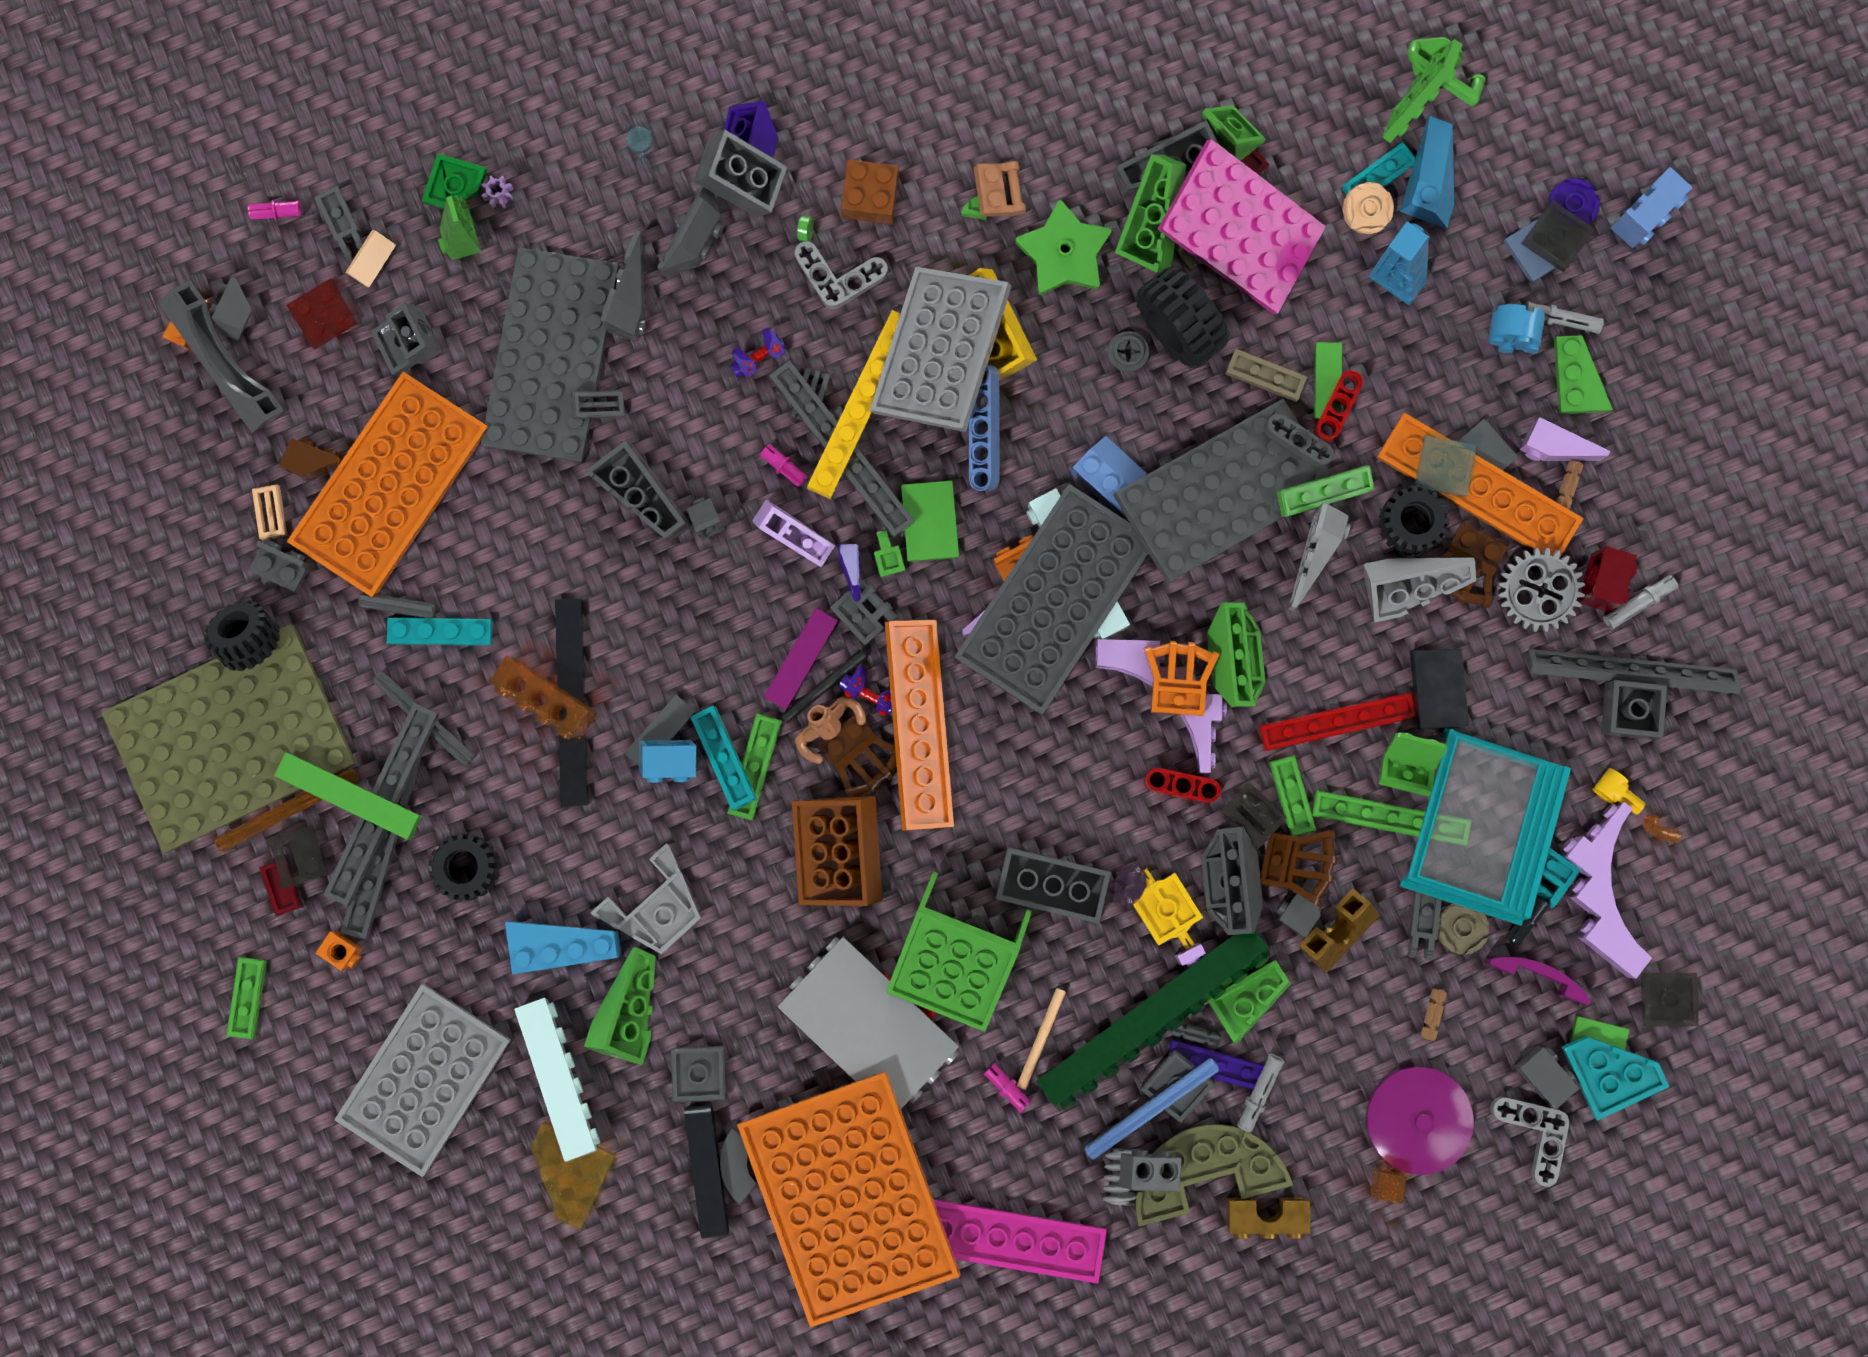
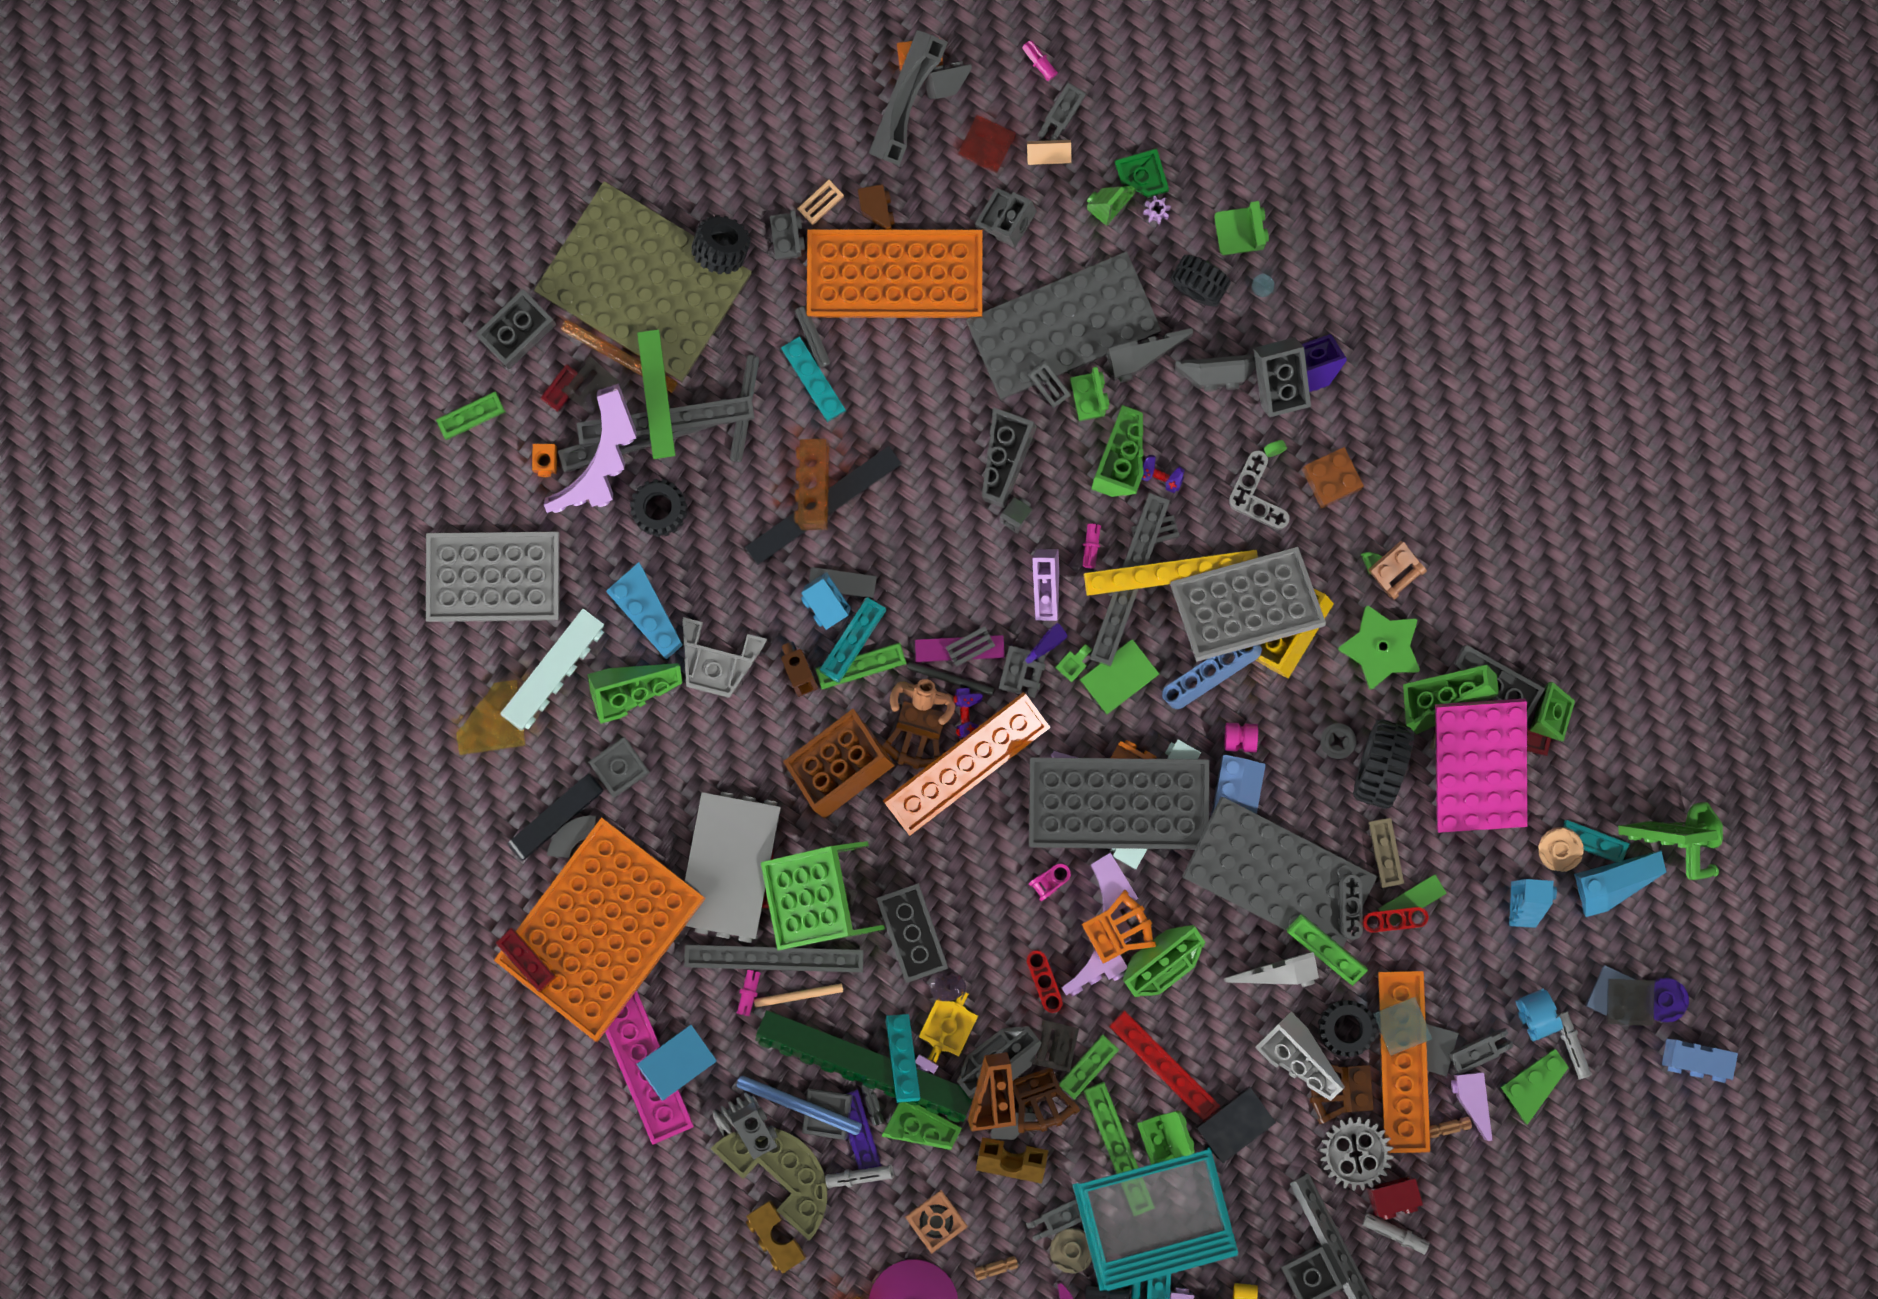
camera: 60 degrees right, 0 degrees up
(188, 896) = (515, 329): none -> dark grey brick
(395, 916) = (608, 459): none -> lavender arch
(571, 123) = (1241, 229): none -> bright green bracket
(593, 191) = (1200, 280): none -> black tyre
(635, 371) = (1089, 396): none -> bright green bracket
(721, 382) = (1123, 457): none -> bright green wedge
(724, 831) = (799, 675): none -> reddish brown torso
(807, 623) = (986, 638): none -> dark grey tile
(831, 1294) = (526, 960): none -> dark red tile
(988, 1043) = (772, 959): none -> dark grey plate
(1031, 1206) = (676, 1062): none -> dark azure tile
(1066, 439) = (1241, 737): none -> dark pink wheel
(1087, 717) = (1049, 882): none -> dark pink piece
(1171, 974) = (902, 1058): none -> teal plate
(1267, 907) = (994, 1095): none -> dark orange wedge
(1352, 1045) = (936, 1220): none -> nougat piece
(1515, 408) = (1479, 1051): none -> dark grey hinge

